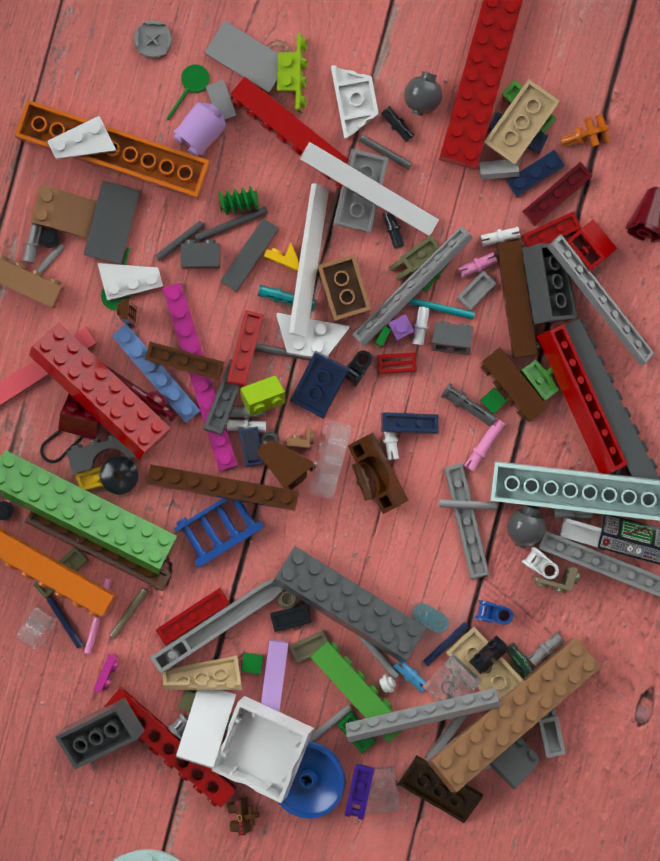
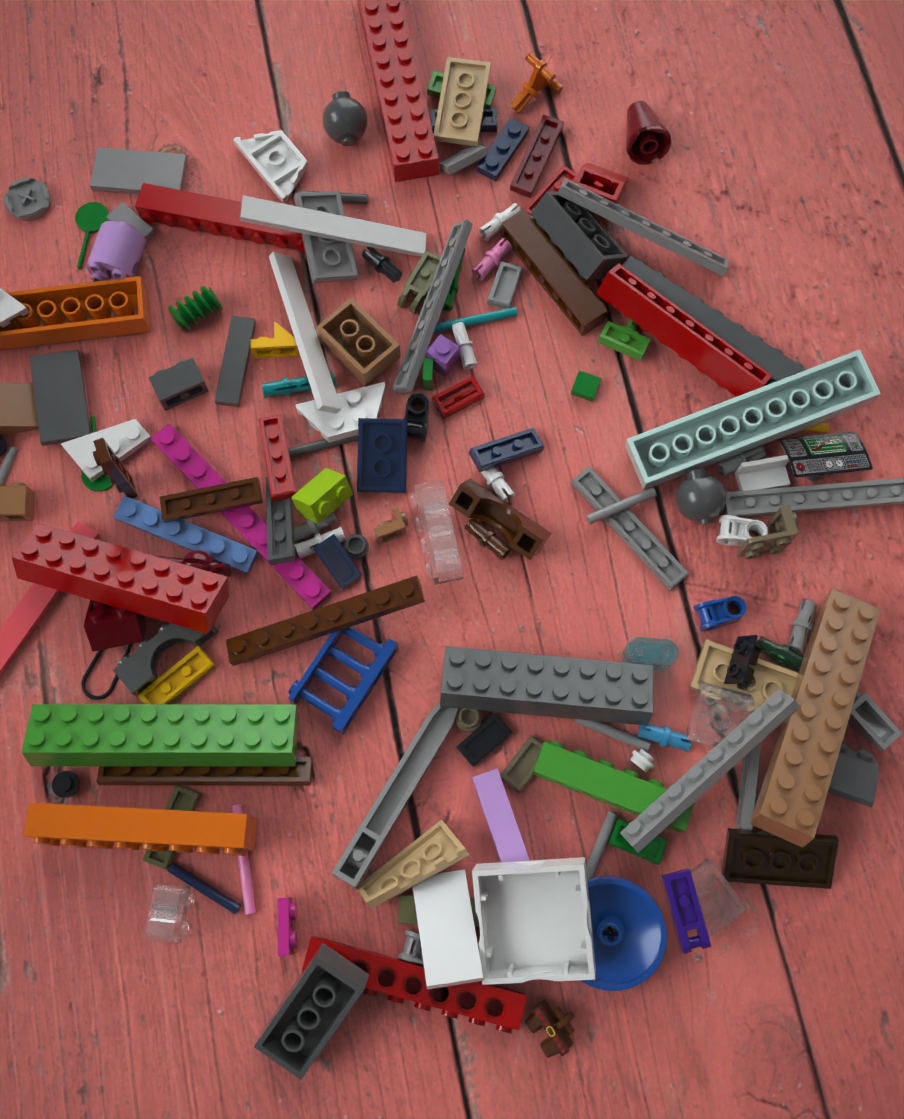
camera: 30 degrees left, 15 degrees down
(126, 482) = (200, 679): black dish -> none
(129, 612) = (280, 836): dark tan bar -> none
(177, 242) = (146, 384): dark grey bar -> none
(192, 616) = (362, 798): red tile -> none
(230, 224) = (202, 336): dark grey bar -> none
(252, 663) = (465, 819): green tile -> none
(285, 464) = (386, 555): reddish brown slope -> none
(291, 72) = (192, 161): lime bracket -> none
(397, 124) = (333, 164): black pin -> none
(446, 643) = (684, 679): dark blue bar -> none
(452, 338) = (508, 337): dark grey brick -> none
(460, 400) = (556, 401): dark grey pin -> none
(482, 448) = (602, 440): bright pink pin -> none
(513, 384) = (599, 357): reddish brown brick -> none

